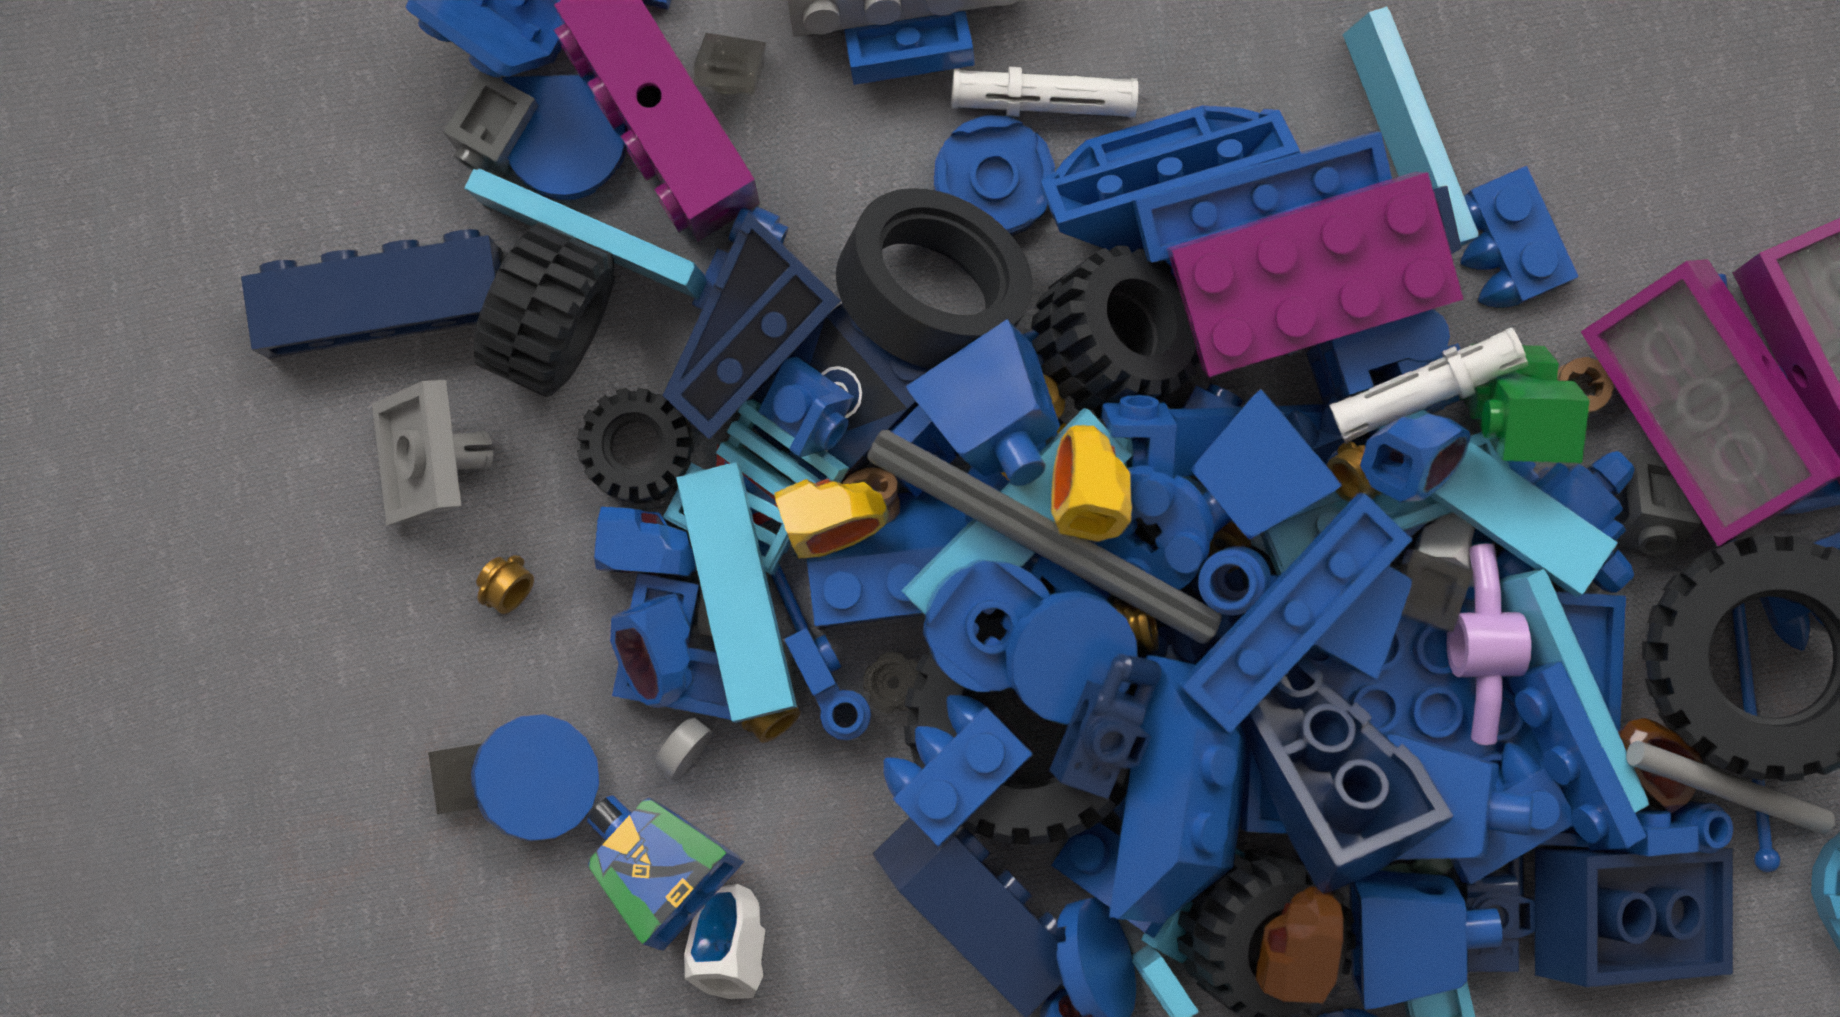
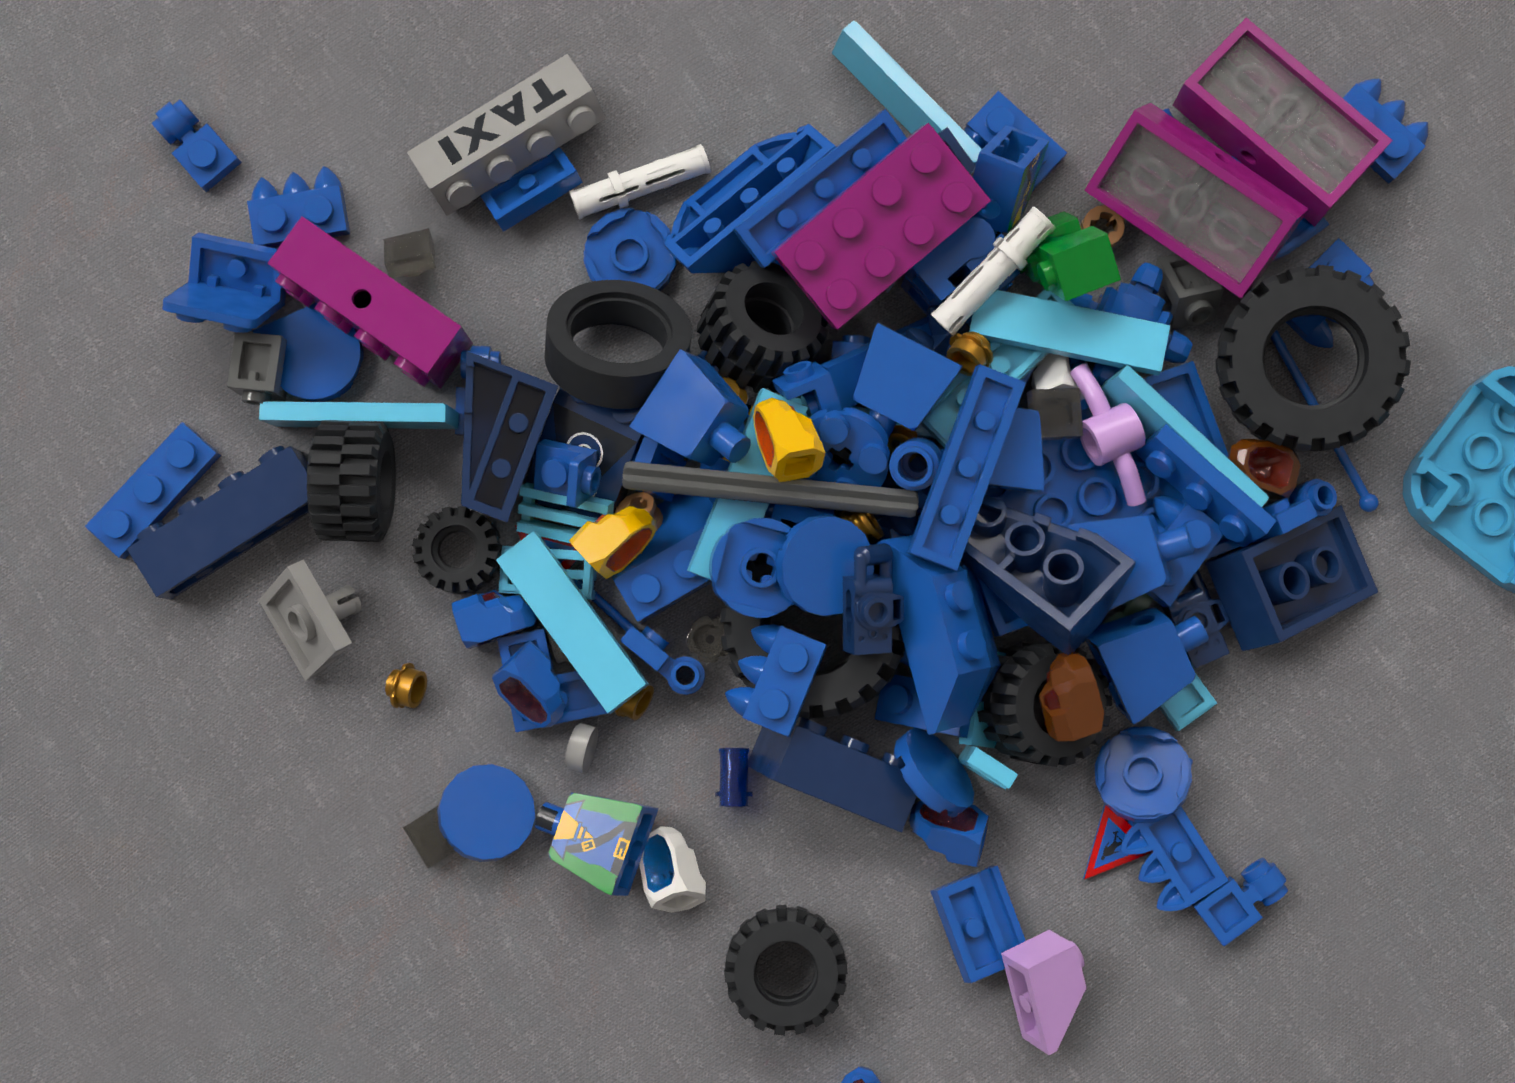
camera: 20 degrees left, 0 degrees up
(303, 217) = (153, 489): none -> blue plate
(851, 863) = (733, 777): none -> clear blue pin
(1414, 456) = (1004, 324): blue rock -> none
(1495, 273) = (1007, 175): none -> blue torso
(1729, 787) = (1320, 462): light grey bar -> none

